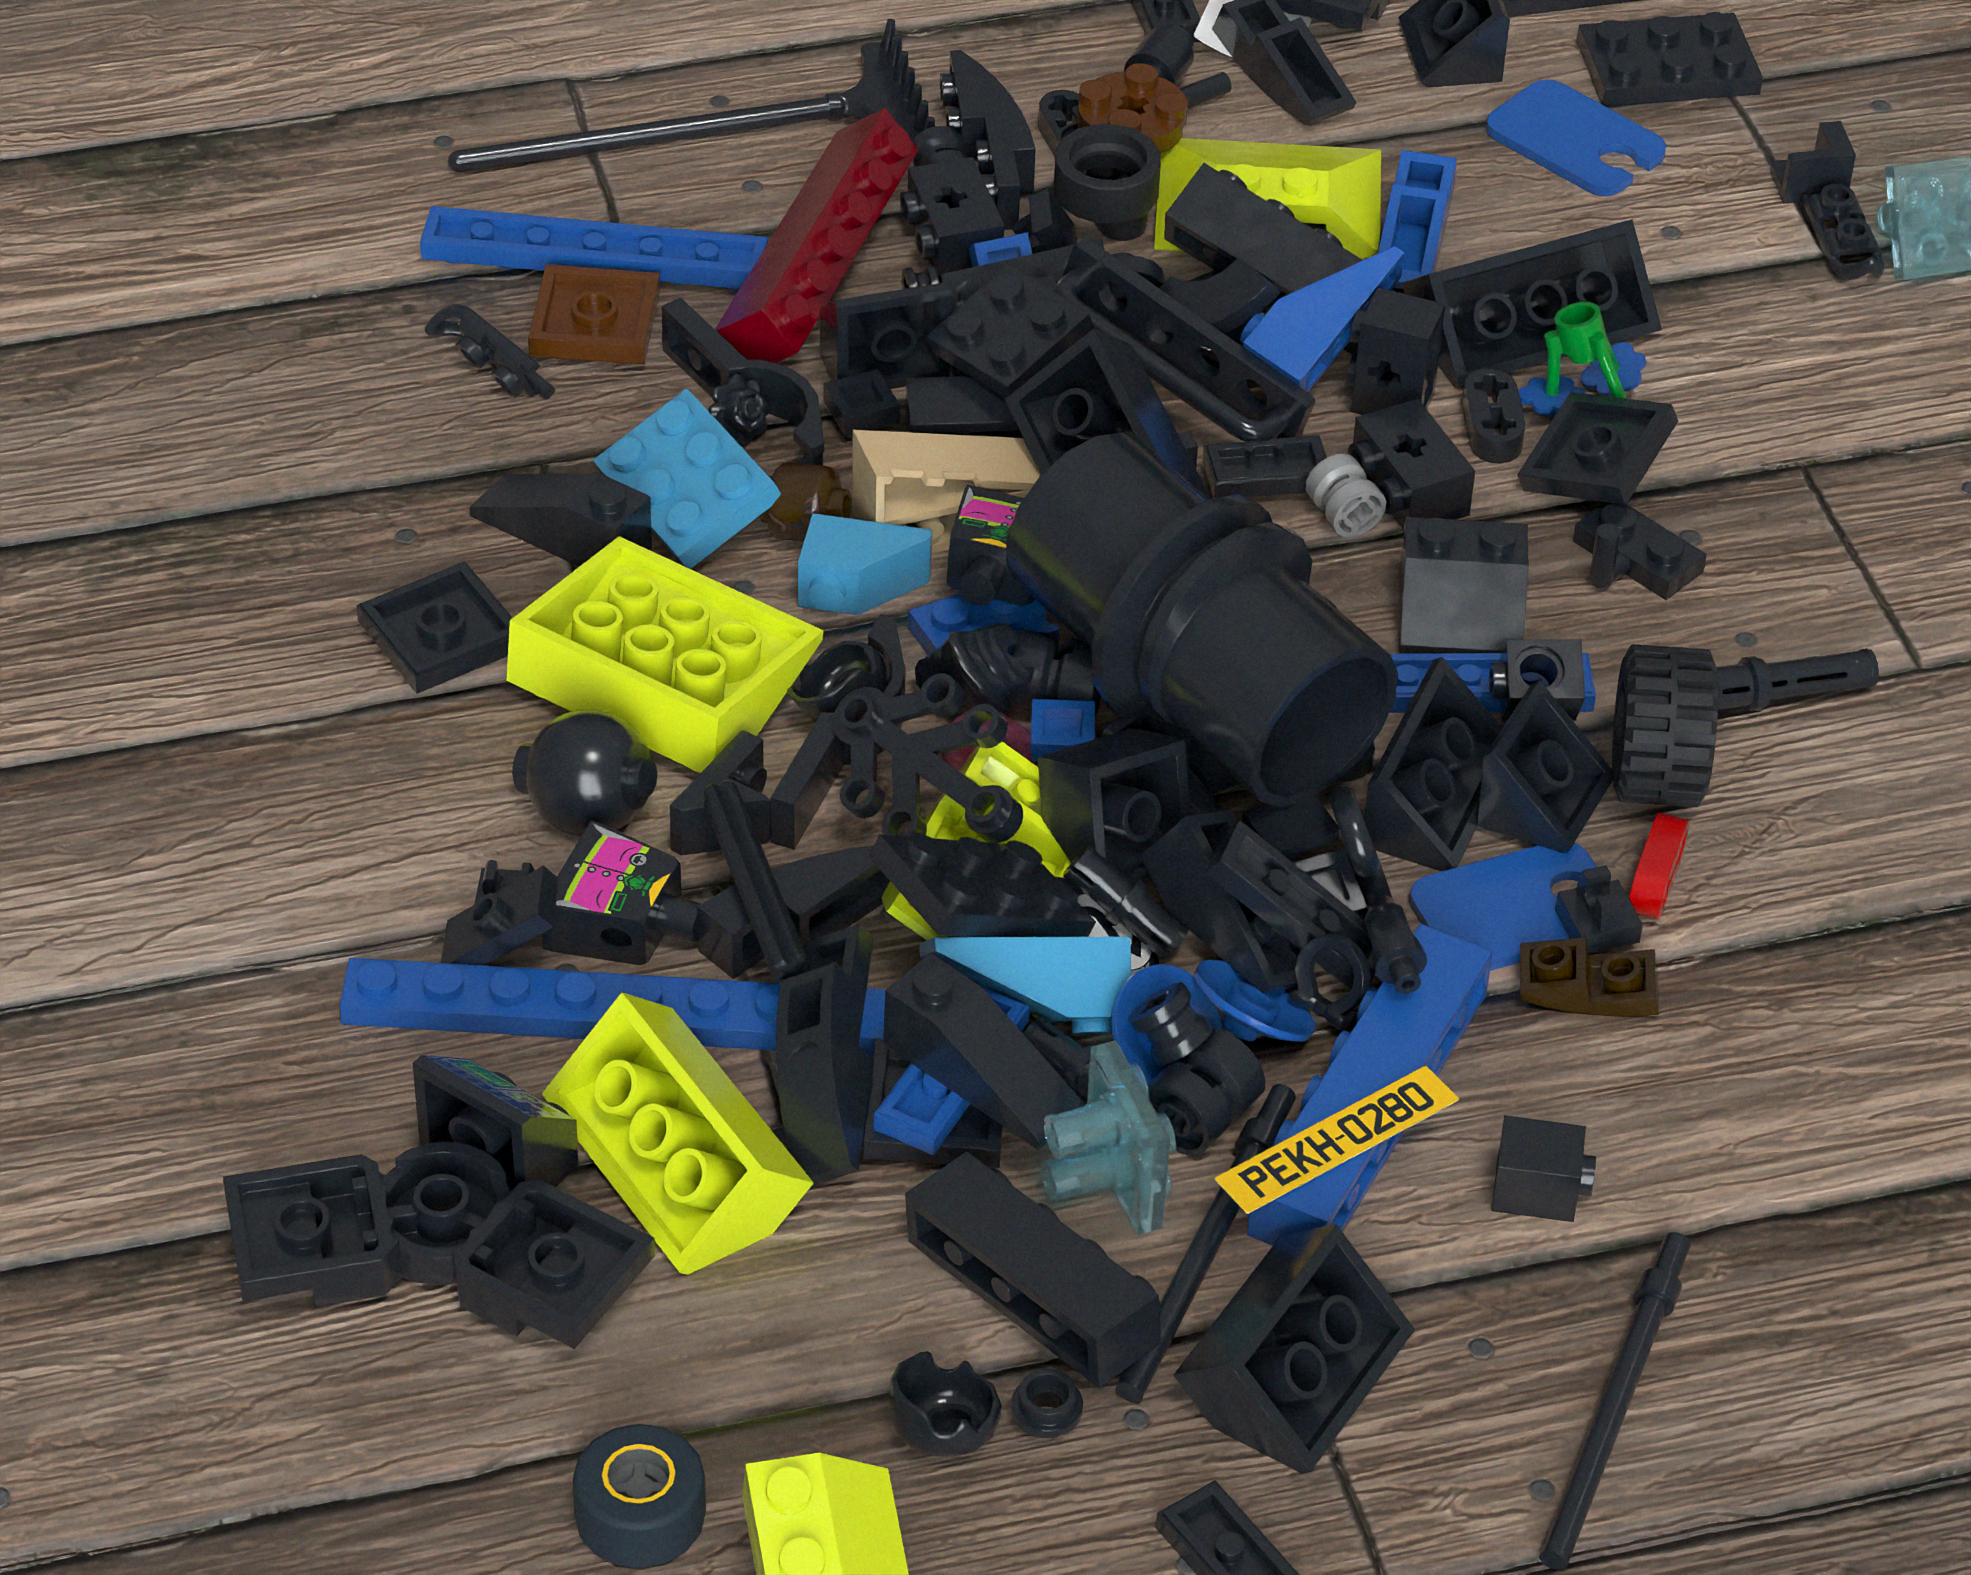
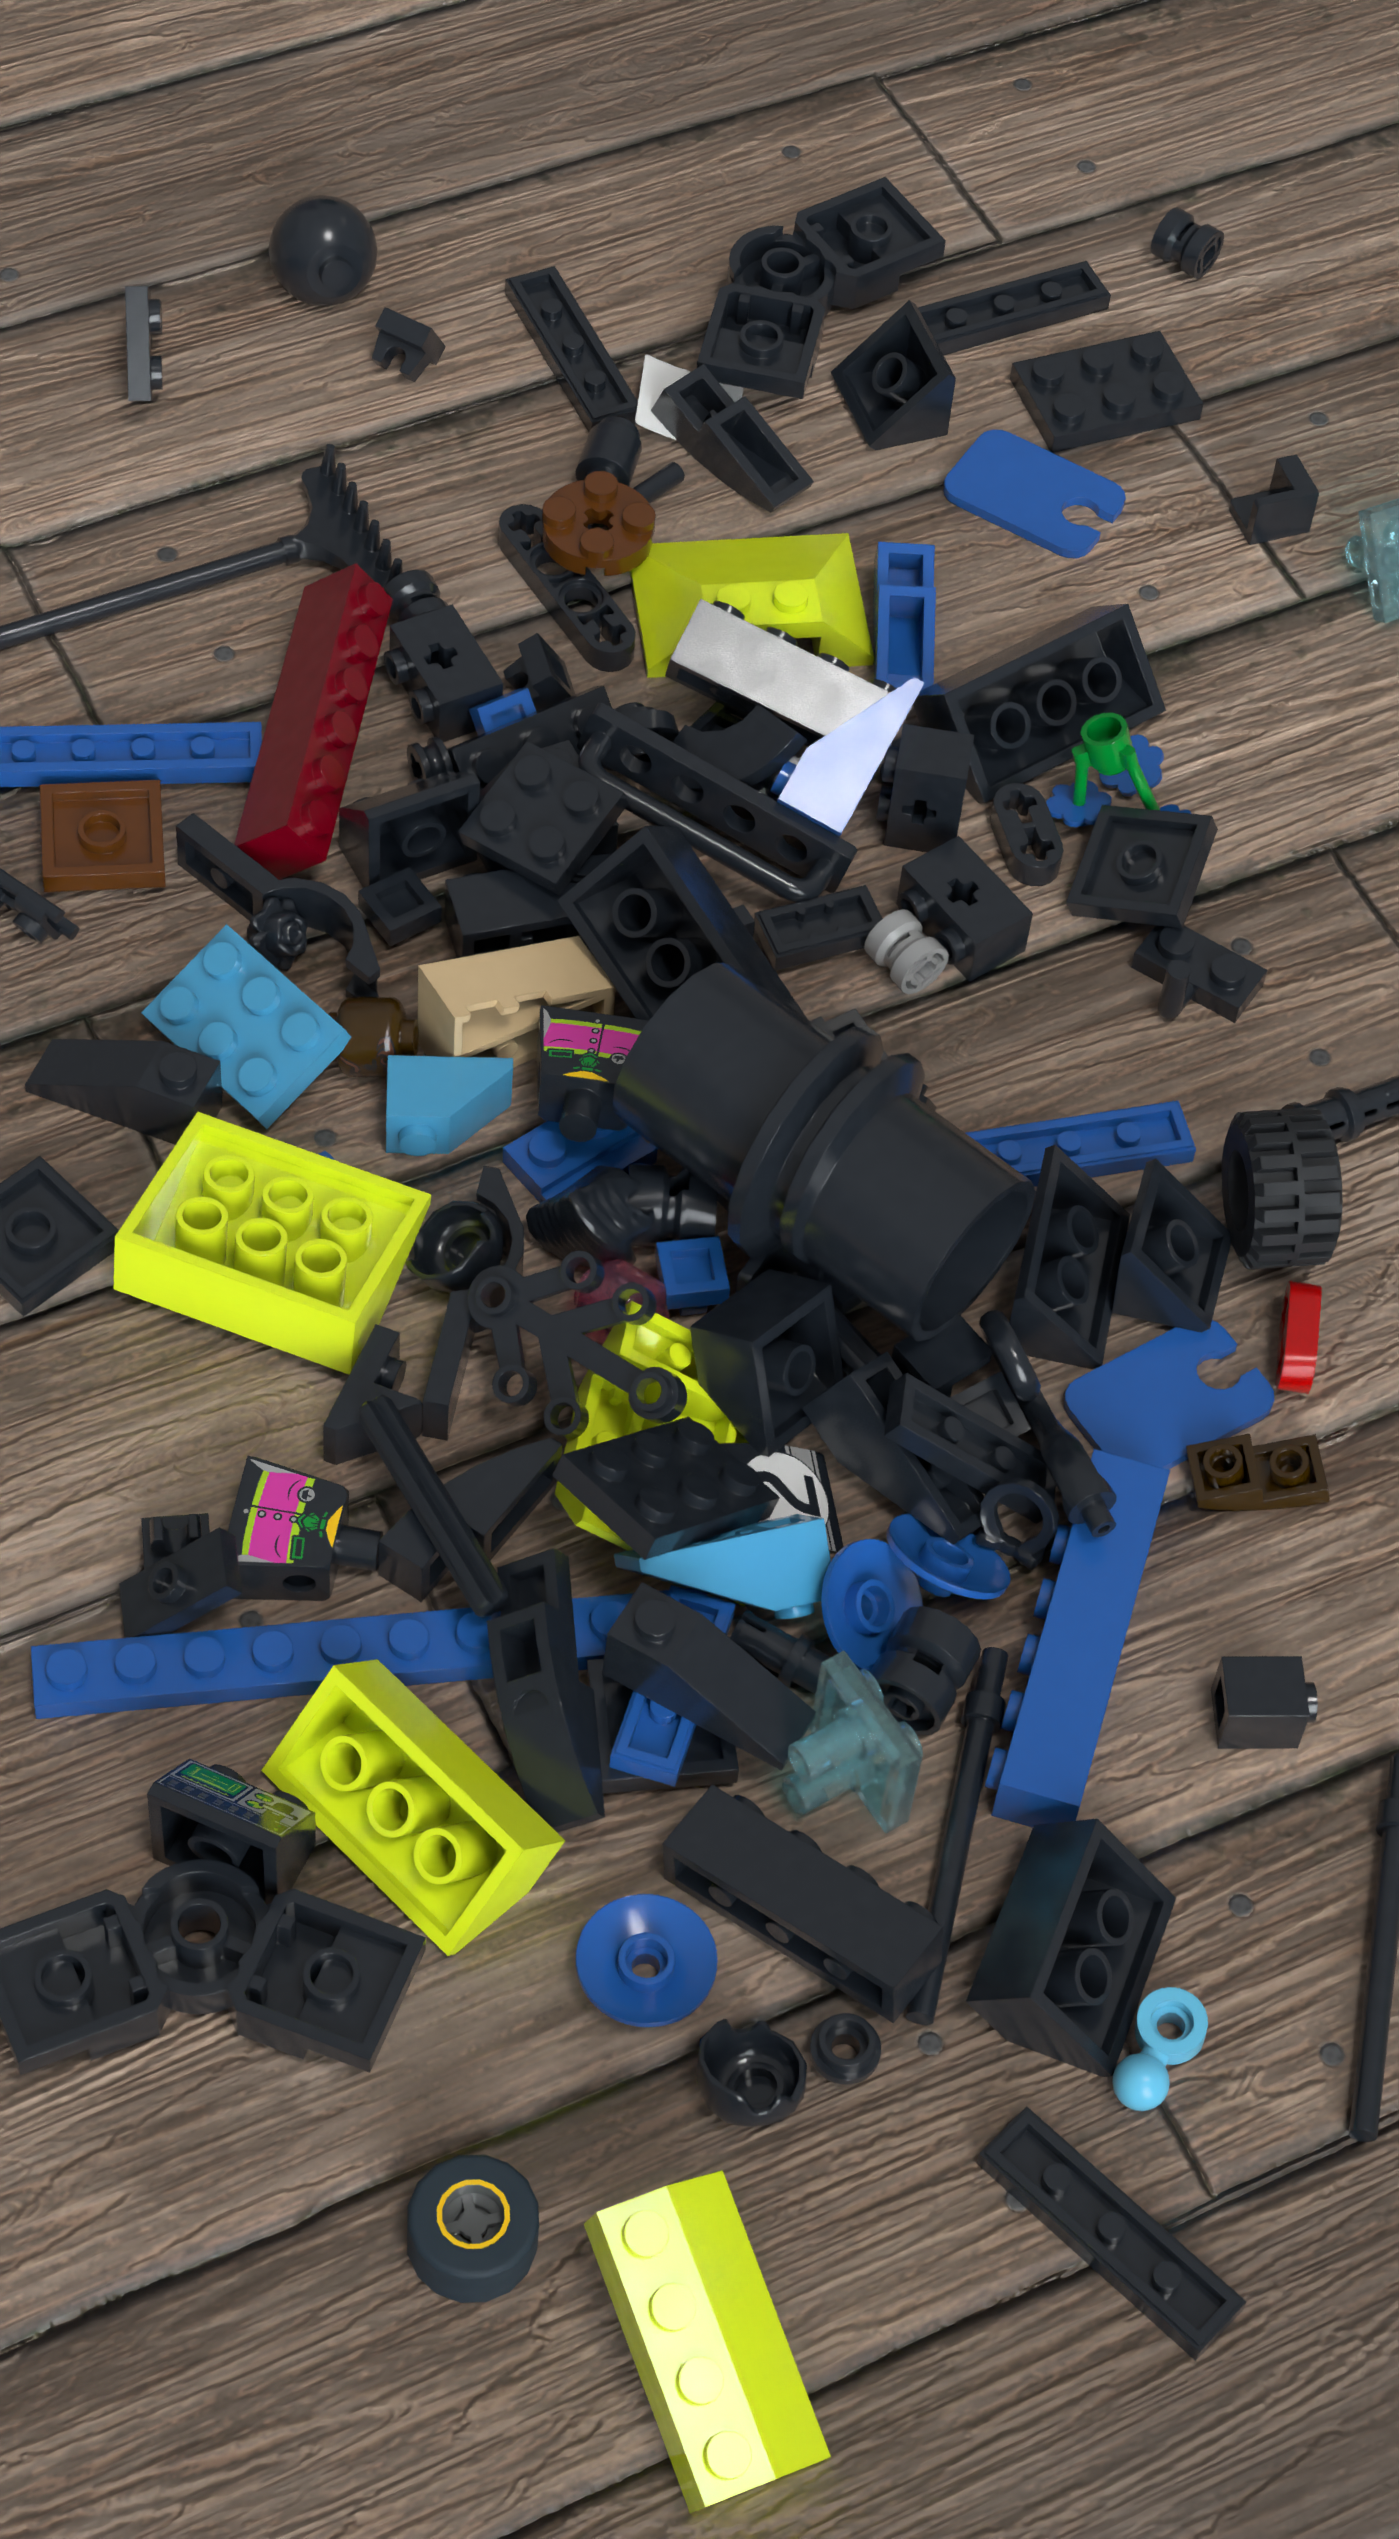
camera: 15 degrees left, 10 degrees up
(586, 771) = (225, 1393): black brick -> none
(873, 1278) = (654, 1933): none -> blue dish
(991, 131) = (459, 562): black slope -> none
(1107, 199) = (591, 574): black tyre -> none
(1125, 902) = (799, 1465): black pin -> none
(1170, 1023) = (882, 1608): black wheel -> none
(1336, 1139) = (1068, 1712): yellow sticker -> none
(1339, 1474) = (1142, 2078): none -> medium azure plate
(1462, 585) = (1044, 1045): black slope -> none
(1554, 659) = (1163, 1128): black brick -> none
(1599, 911) = (1253, 1401): black tile -> none
(1851, 235) = (1326, 578): black piece -> none

